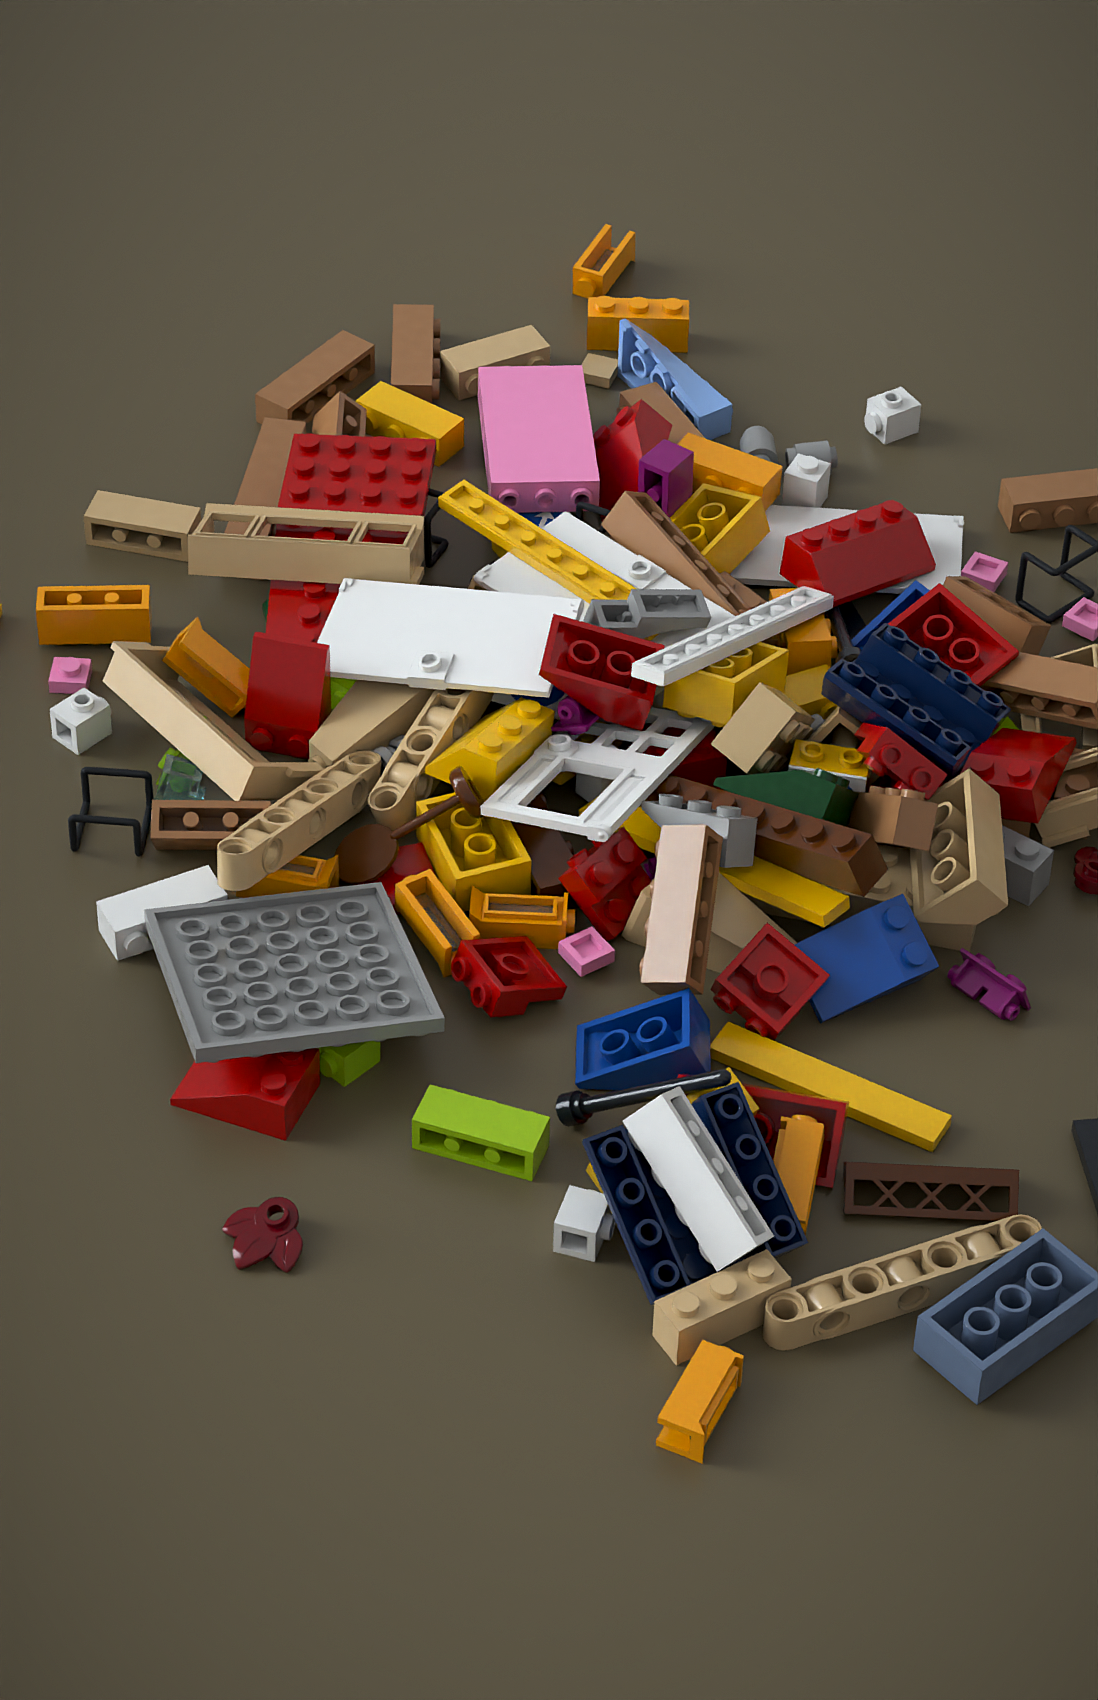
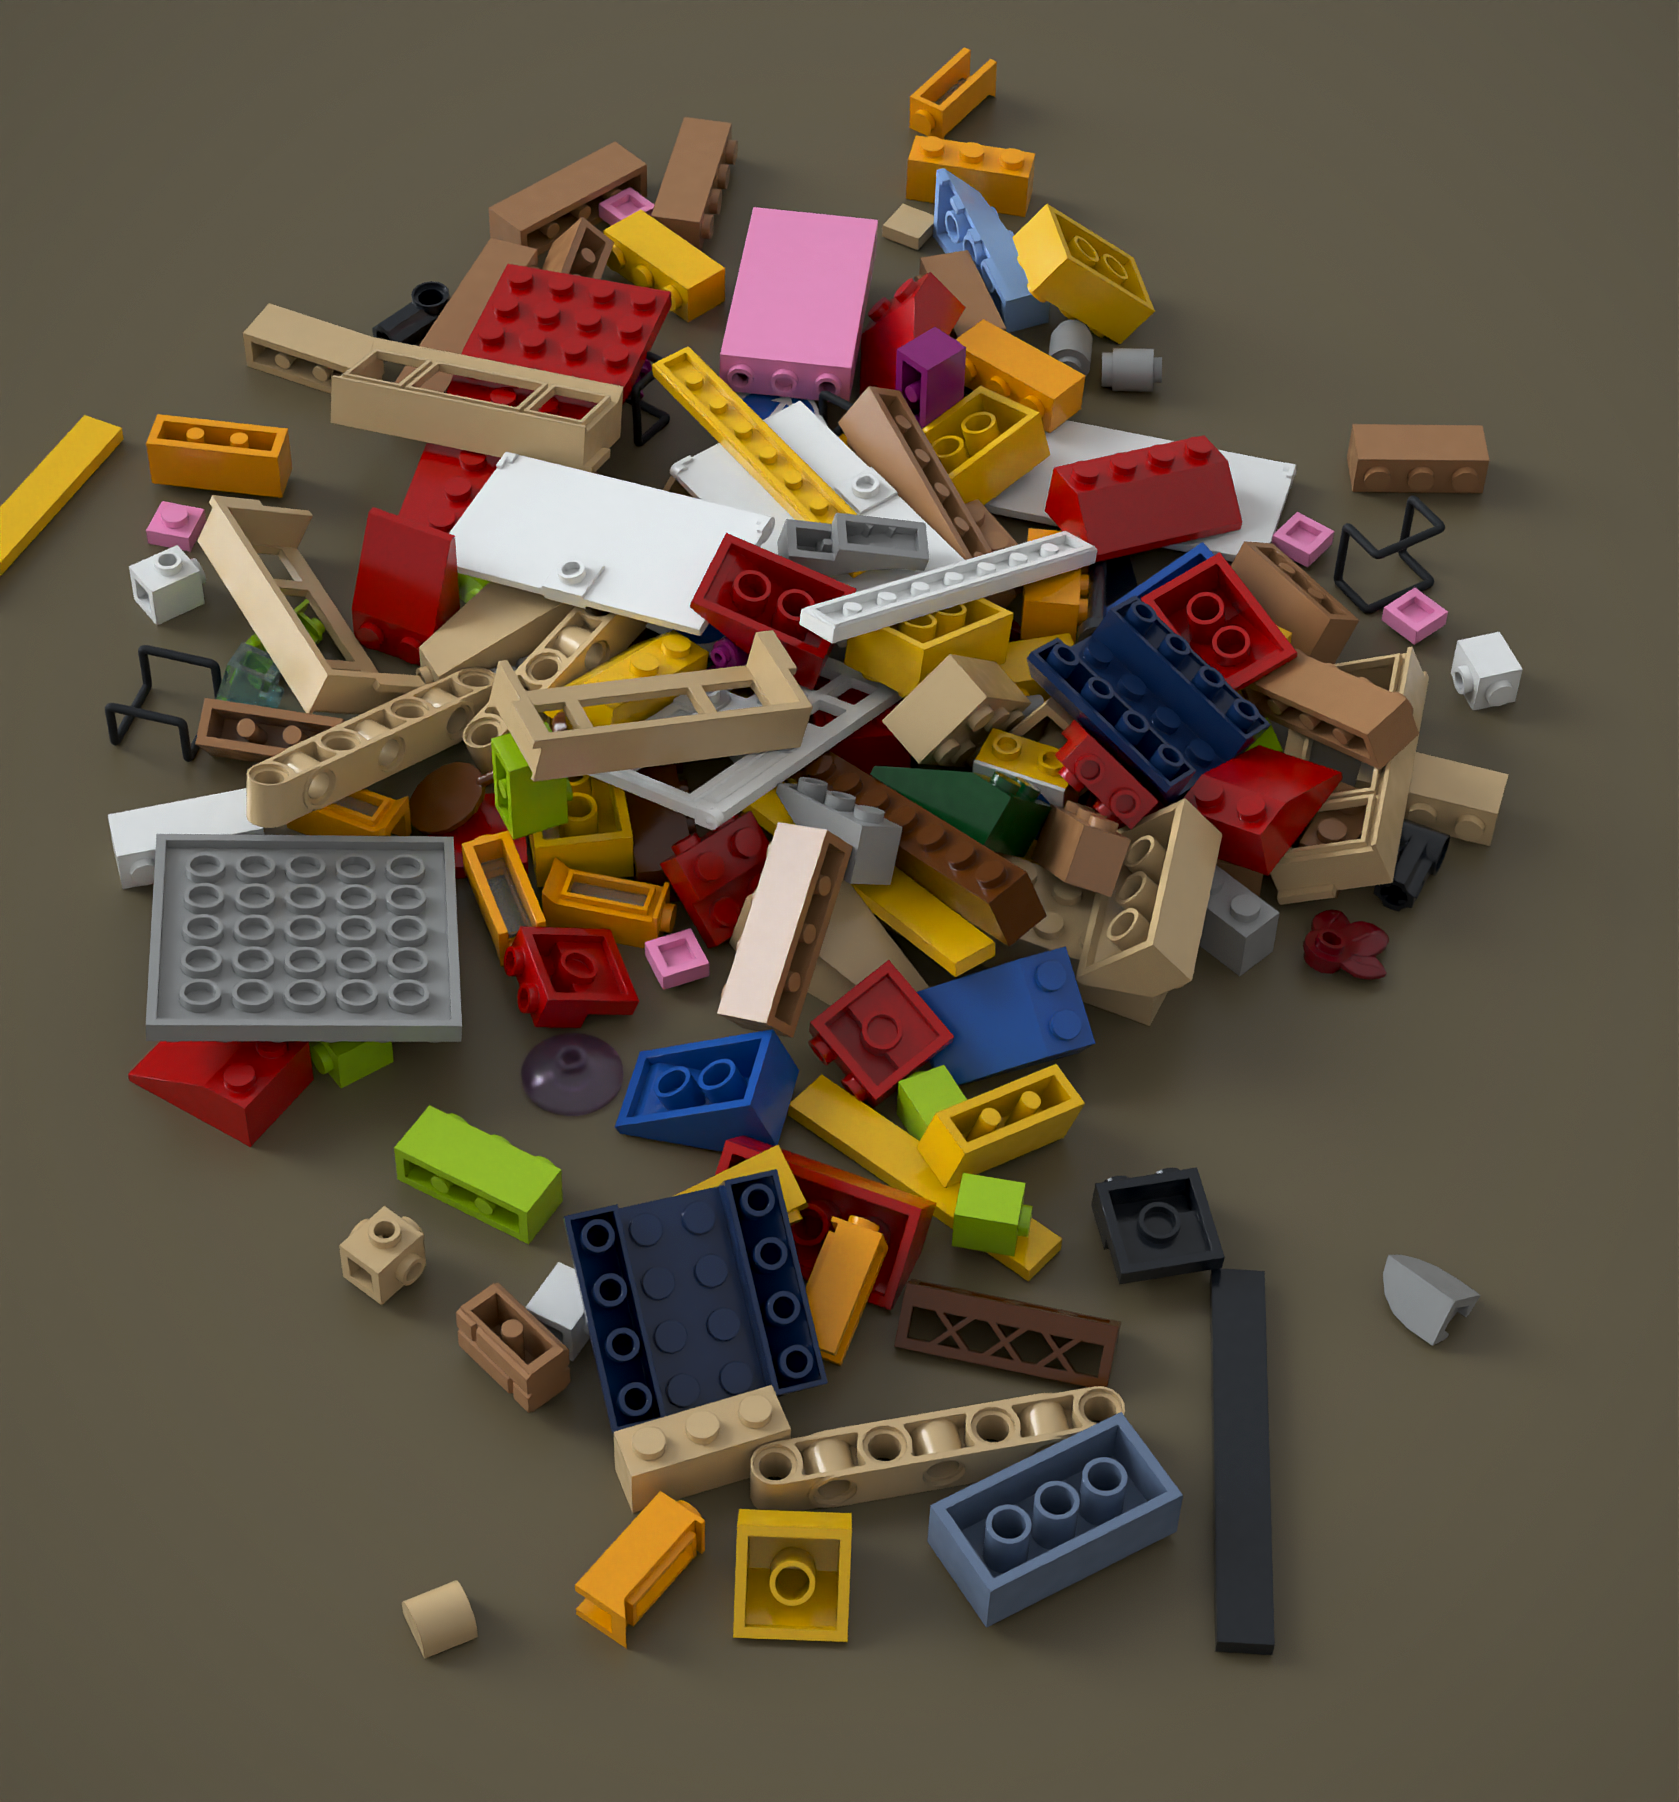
camera: 10 degrees right, 5 degrees up
(209, 668) = (324, 537): light orange window -> none
(222, 486) = (415, 319): none -> black piece
(261, 1237) = (180, 1269): dark red plate -> none
(361, 381) = (623, 205): none -> bright pink plate
(426, 1201) = (383, 1254): none -> tan brick
(445, 824) = (526, 804): none -> lime brick
(511, 348) = (804, 189): tan brick -> none
(527, 1050) = (577, 1087): none -> clear purple dish
(552, 1253) = (513, 1347): none -> medium nougat brick
(553, 1461) = (440, 1618): none -> tan brick
(577, 1107) = (606, 1159): black piece -> none
(627, 755) = (656, 742): none -> tan piece
(697, 1178) = (699, 1285): white brick -> none
(756, 389) = (1082, 275): none -> yellow brick
(806, 482) = (1115, 398): white brick -> none
(819, 1388) = (792, 1575): none -> yellow slope
(825, 1033) = (923, 1096): none -> lime brick
(883, 1036) = (1000, 1125): none -> yellow brick
(892, 415) = (1246, 326): white brick -> none
(895, 1103) = (990, 1214): none -> lime brick
(1002, 993) = (1170, 1089): magenta hinge -> none
(1023, 1093) = (1157, 1225): none -> black plate

